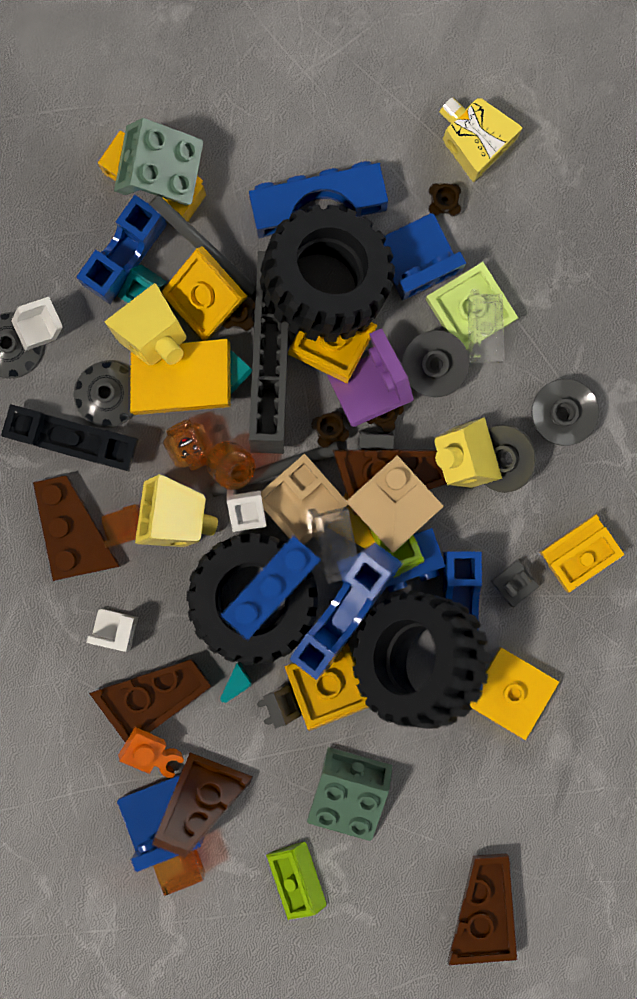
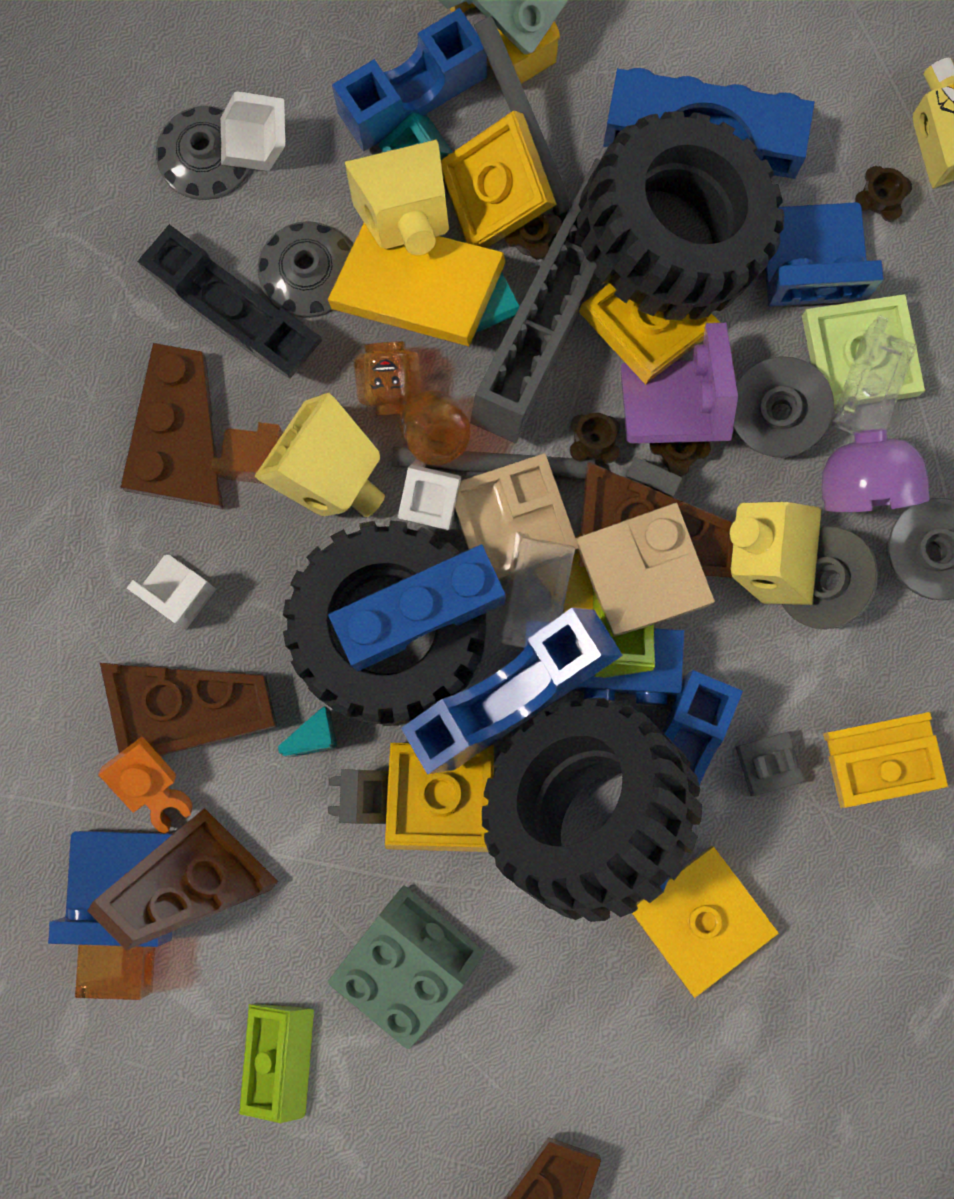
camera: 30 degrees right, 5 degrees down
(507, 386) = (874, 474): none -> medium lavender cylinder

